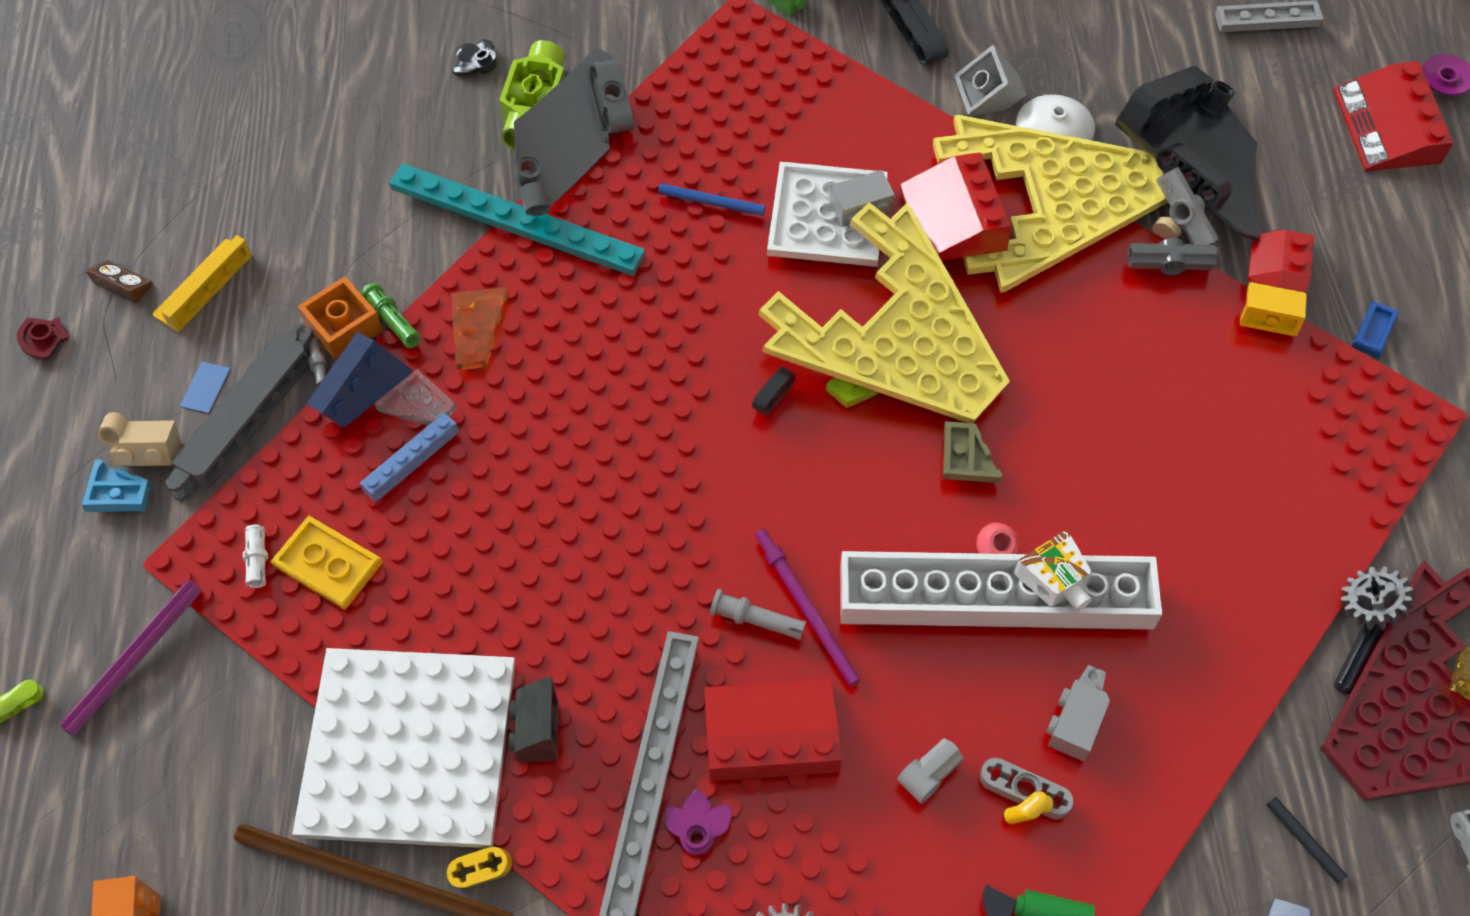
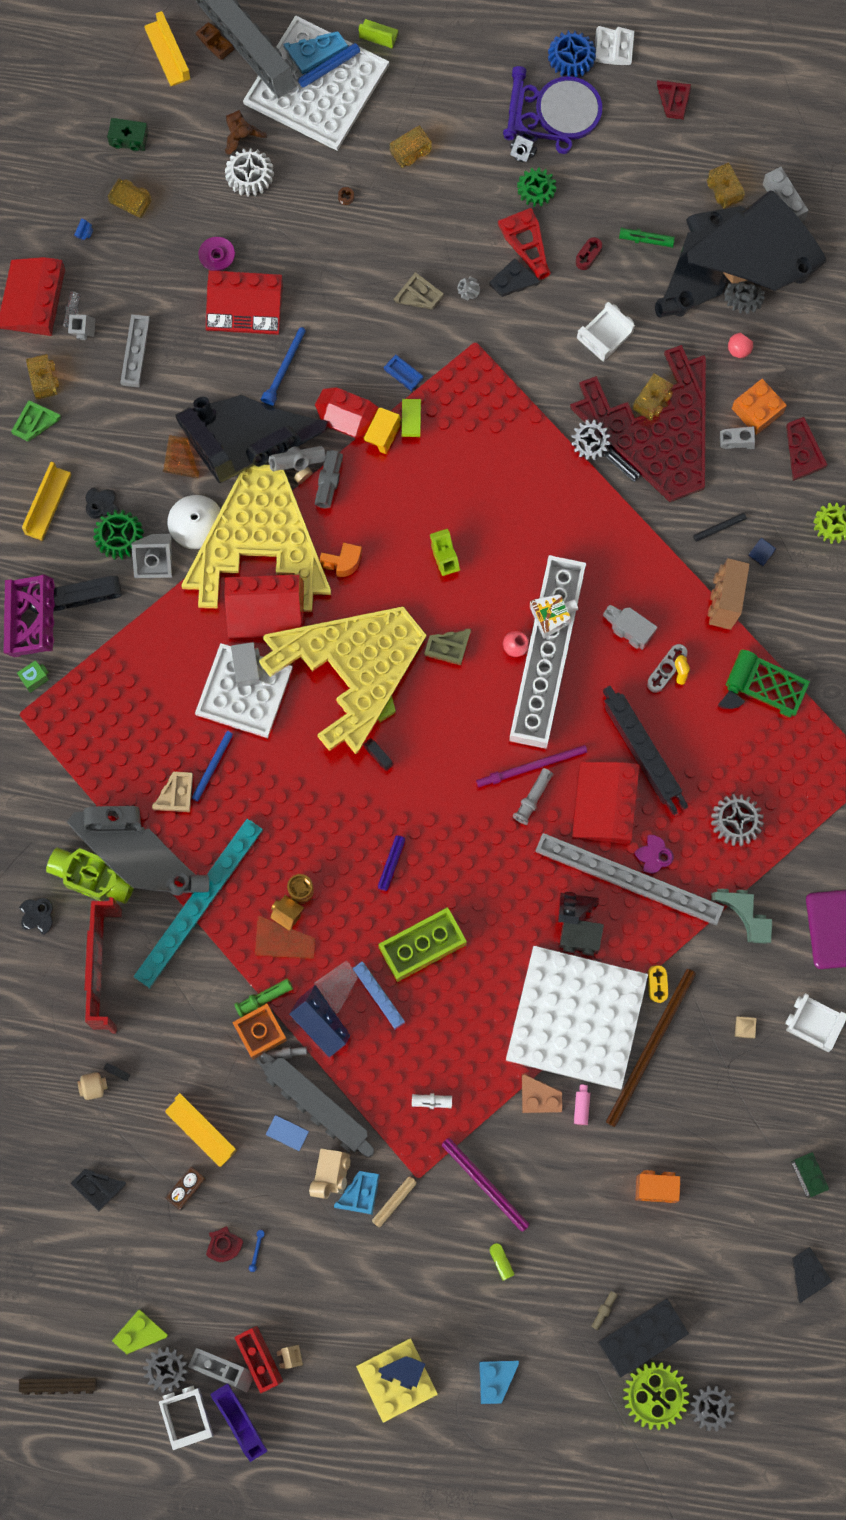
camera: 80 degrees left, 15 degrees up
(58, 379) = (260, 1234): none -> blue hinge
(106, 538) = (394, 1201): none -> tan axle
(117, 182) = (97, 1188): none -> black wing
(251, 149) = (92, 1086): none -> tan head
(264, 781) = (582, 1106): none -> bright pink cylinder
(274, 175) = (116, 1071): none -> black tile
(274, 714) = (539, 1097): none -> nougat wing
(326, 562) = (443, 1056): yellow tile -> none
(400, 107) = (94, 963): none -> red piece
(491, 495) = (422, 944): none -> lime brick
(515, 316) = (286, 912): none -> pearl gold brick
(551, 326) = (300, 888): none -> pearl gold wheel
(579, 696) = (574, 907): none -> black wing
(613, 439) = (391, 863): none -> dark purple axle
(663, 164) = (176, 794): none -> tan wing
(871, 770) = (643, 749): none -> black hinge
(925, 775) = (650, 720): light grey piece -> none
(1014, 38) = (109, 523): none -> green gear
(1043, 20) = (101, 500): none -> black plate
(1056, 300) = (346, 563): none -> orange brick
(1111, 422) = (444, 552): none -> lime brick
(1128, 81) = (179, 458): none -> clear orange wing
(1188, 861) = (728, 593): none -> medium nougat brick
(1268, 172) = (269, 397): none -> blue piece
(1308, 341) = (411, 417): none -> lime slope

